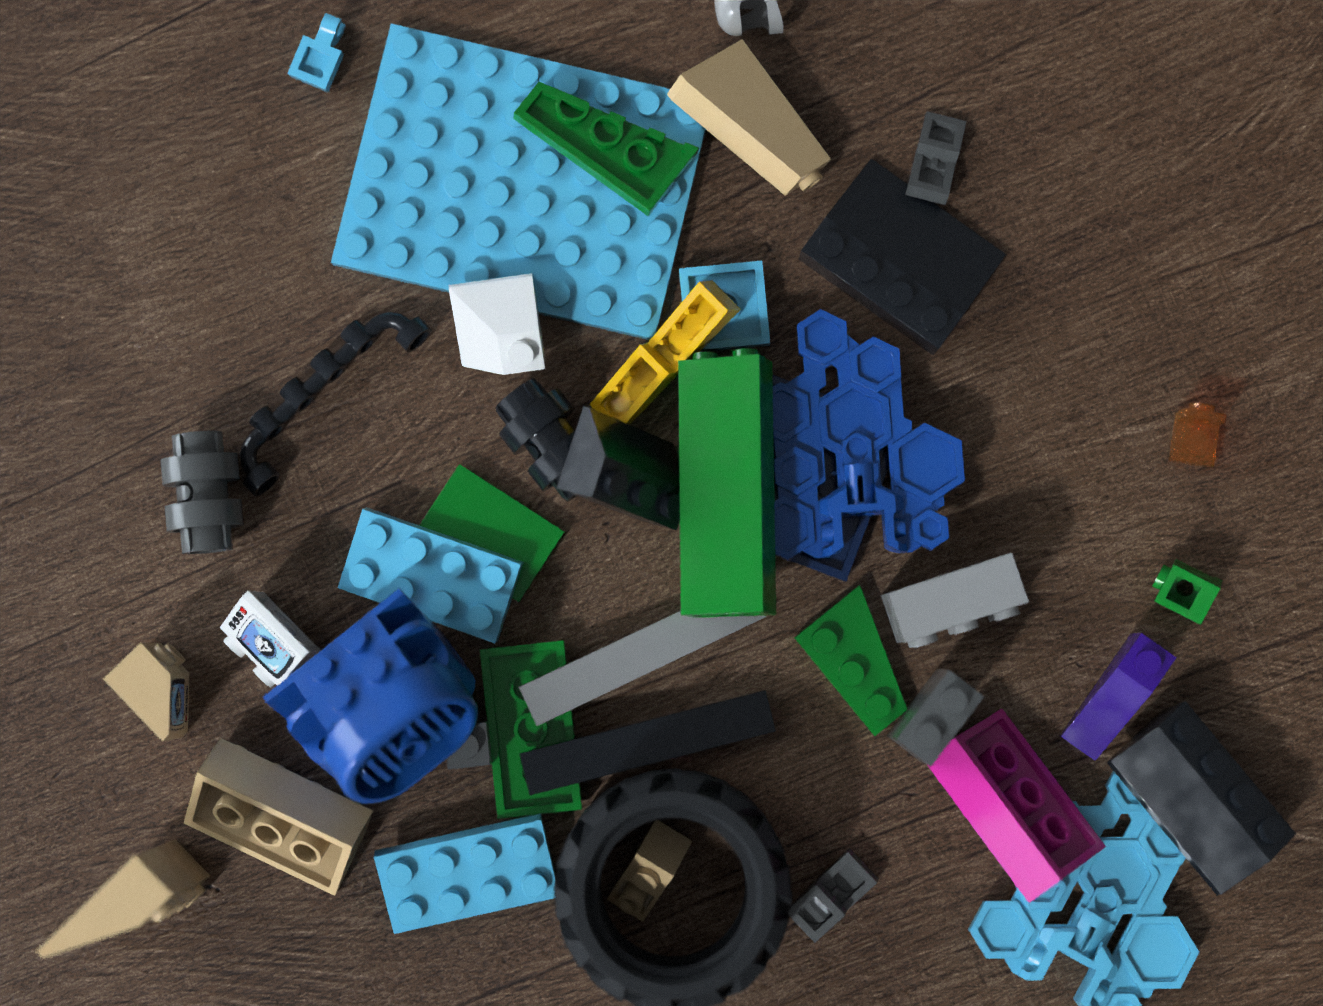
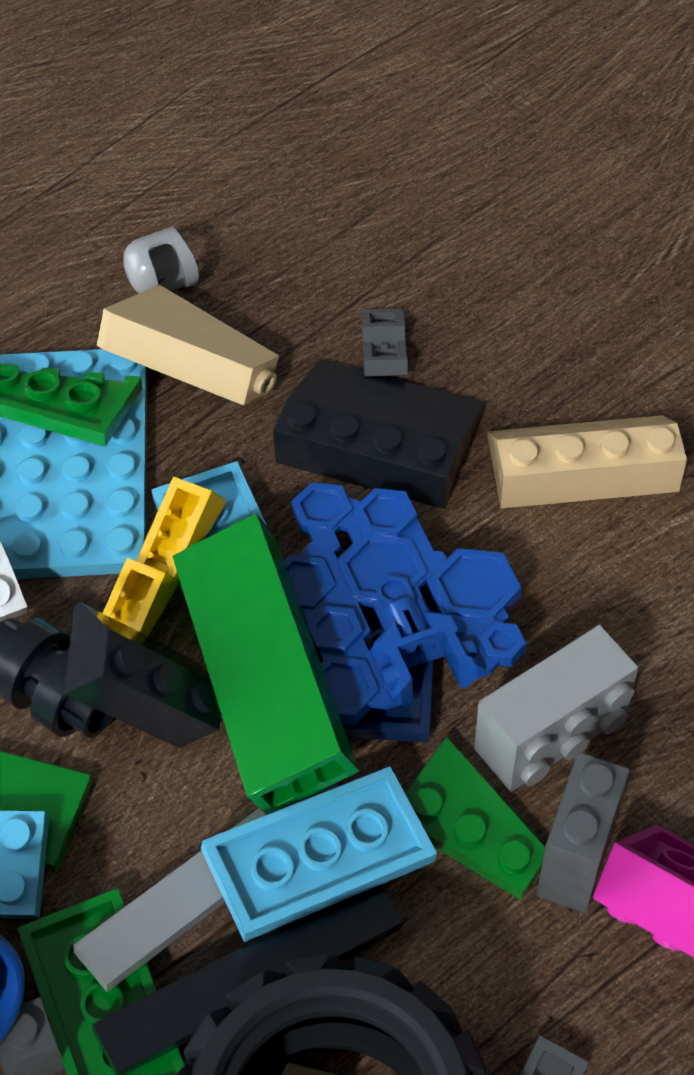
camera: 20 degrees left, 30 degrees down
(725, 664) = (317, 853): none -> medium azure plate
(1075, 344) = (587, 461): none -> tan slope

